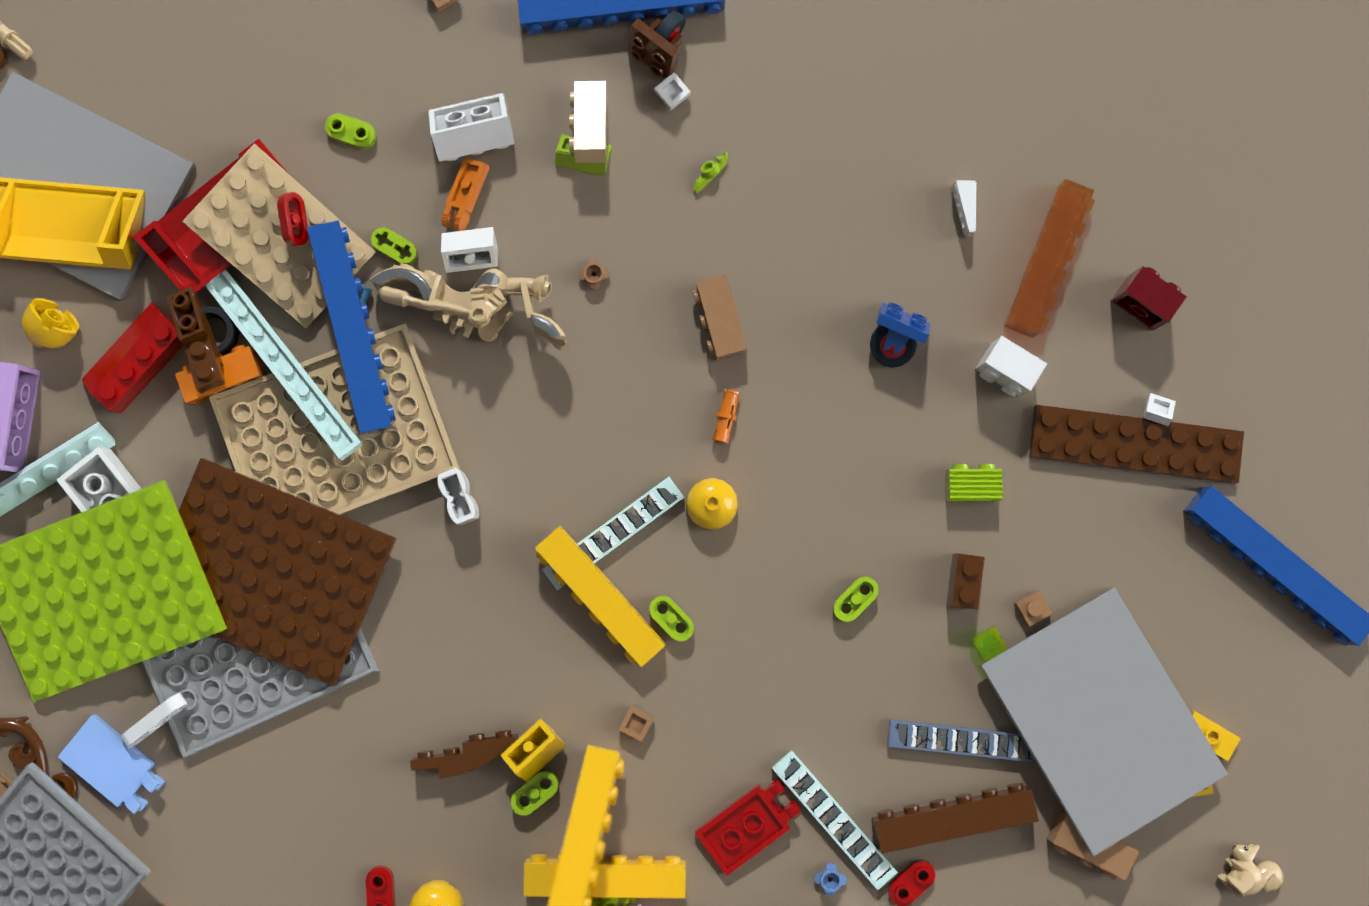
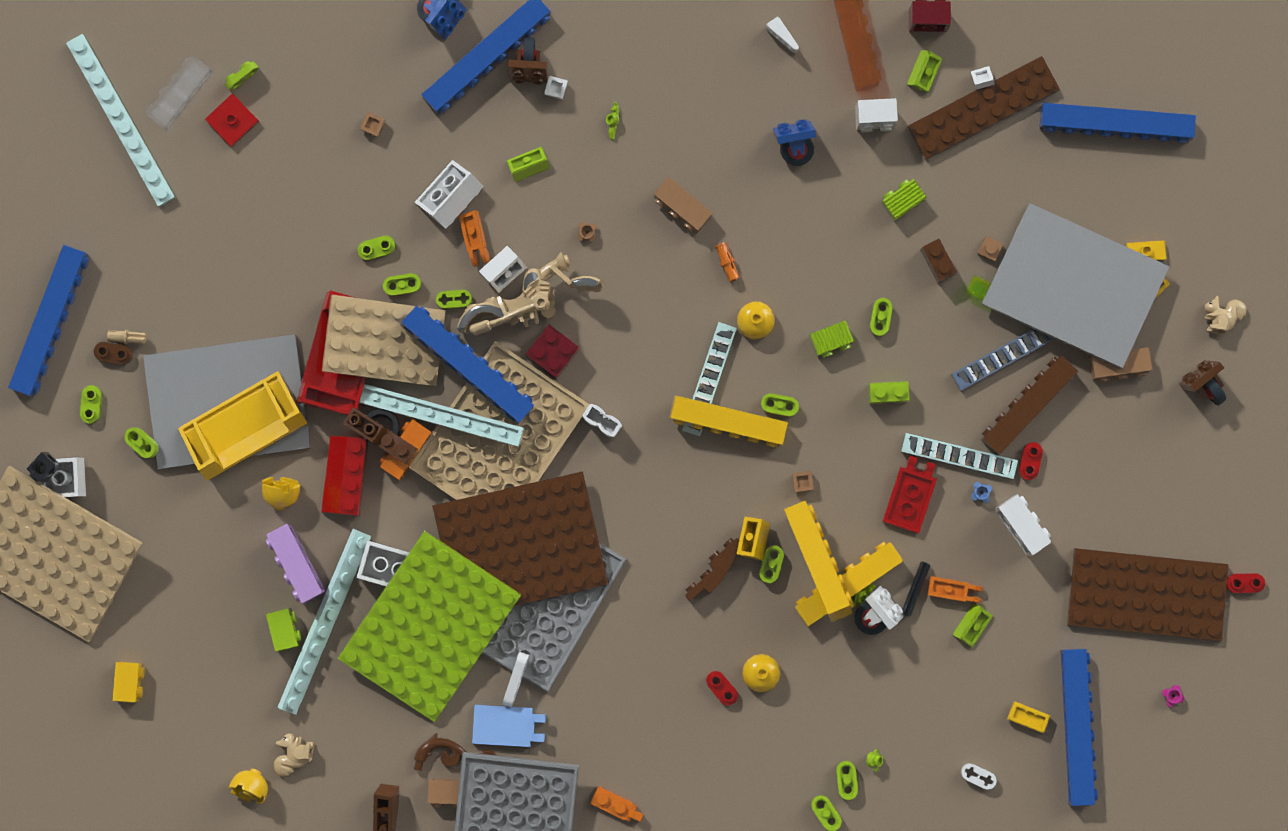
camera: 35 degrees left, 0 degrees up
(292, 219) = (387, 324): red plate -> none
(349, 191) = (401, 284): none -> lime plate
(459, 380) = (552, 351): none -> dark red brick
(589, 122) = (520, 141): brick -> none
(782, 585) = (831, 338): none -> lime brick
(804, 691) = (888, 392): none -> lime brick
(1098, 356) = (924, 71): none -> lime slope

